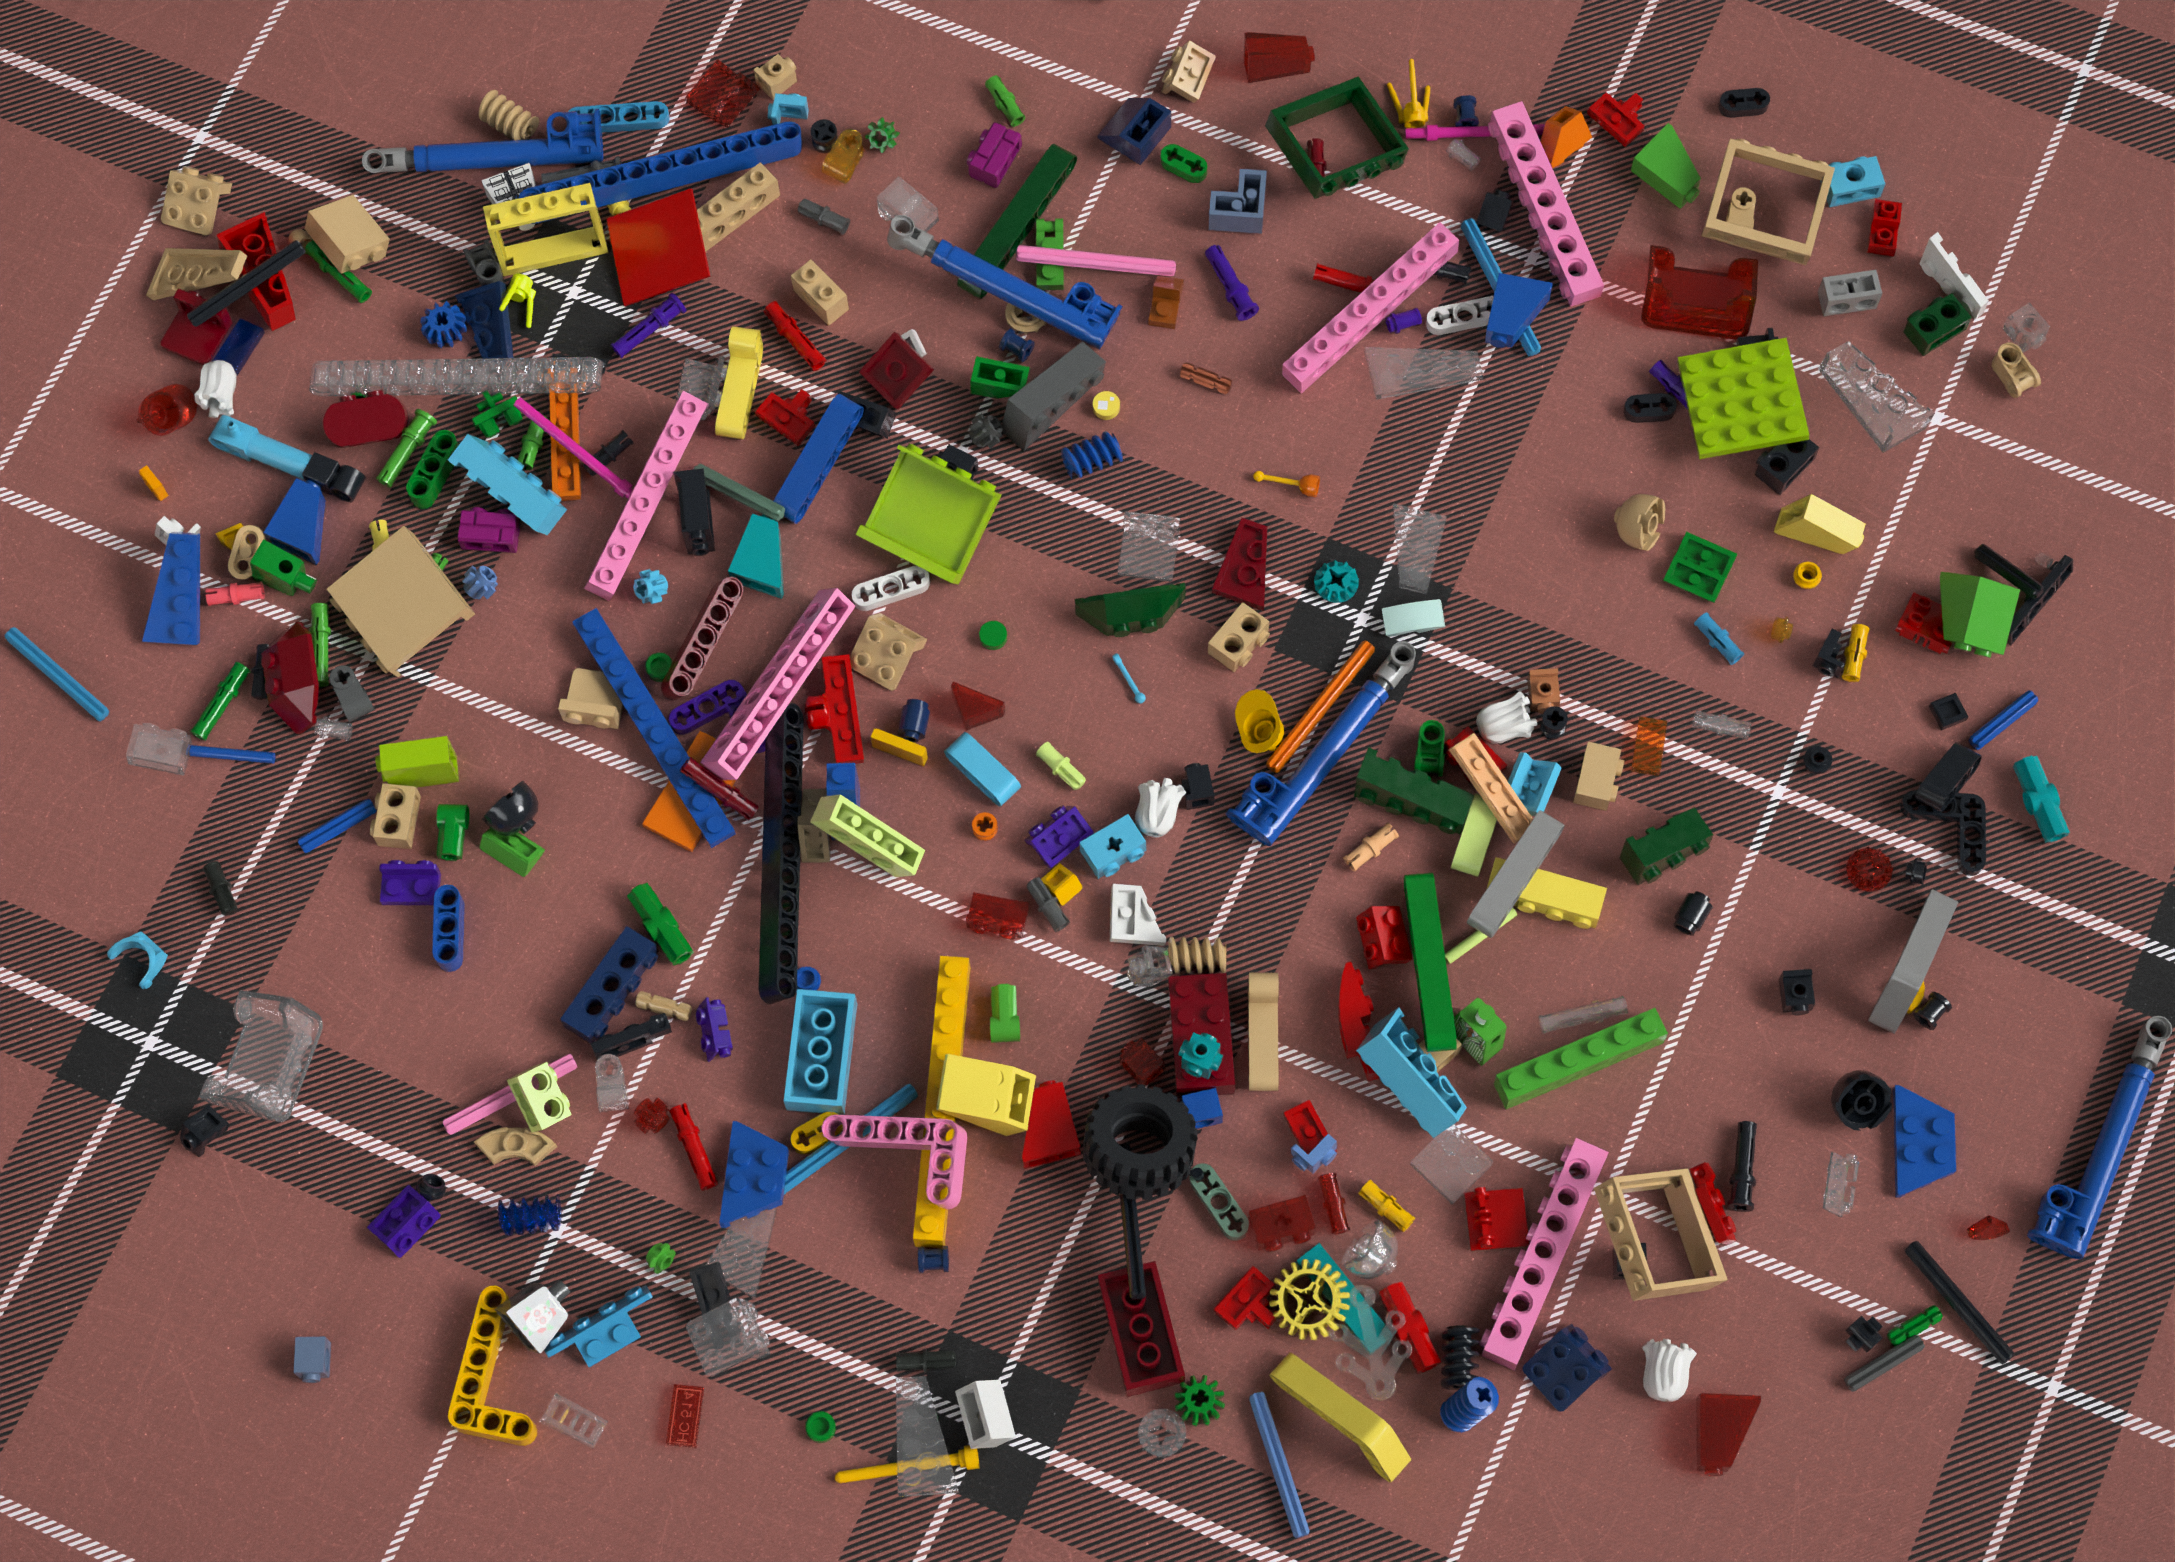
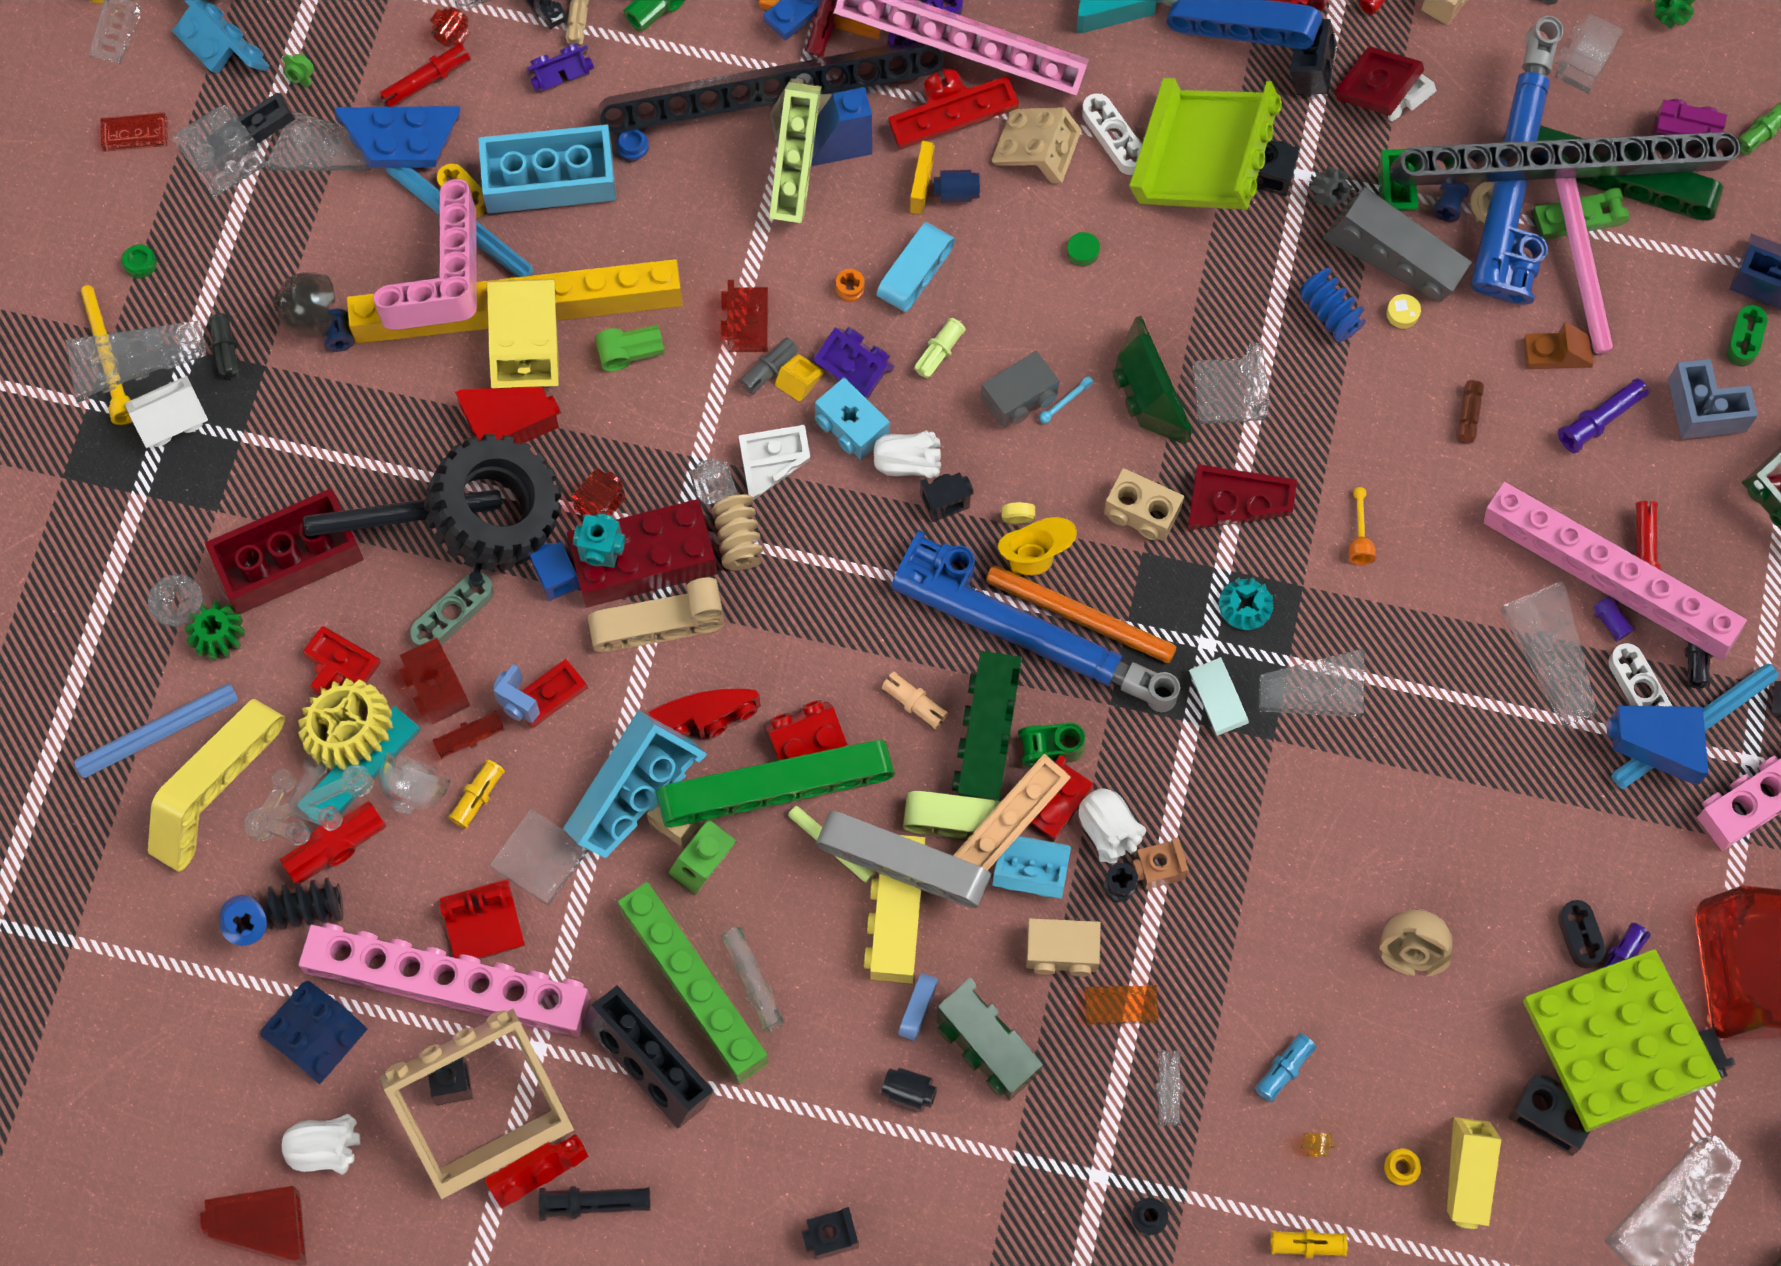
camera: 75 degrees right, 0 degrees up
(911, 1274) = (304, 304): none -> clear smoke cylinder
(975, 706) = (986, 242): clear red slope -> none
(1024, 210) = (1554, 167): none -> black beam
(1118, 709) = (1020, 390): none -> dark grey brick
(1225, 734) = (1018, 513): none -> light yellow tile
(1628, 893) = (918, 1007): none -> medium blue beam
(1637, 1102) = (647, 1056): none -> black brick
(1700, 567) = (1377, 1030): green slope -> none
(1826, 659) = (1303, 1207): black bracket -> none

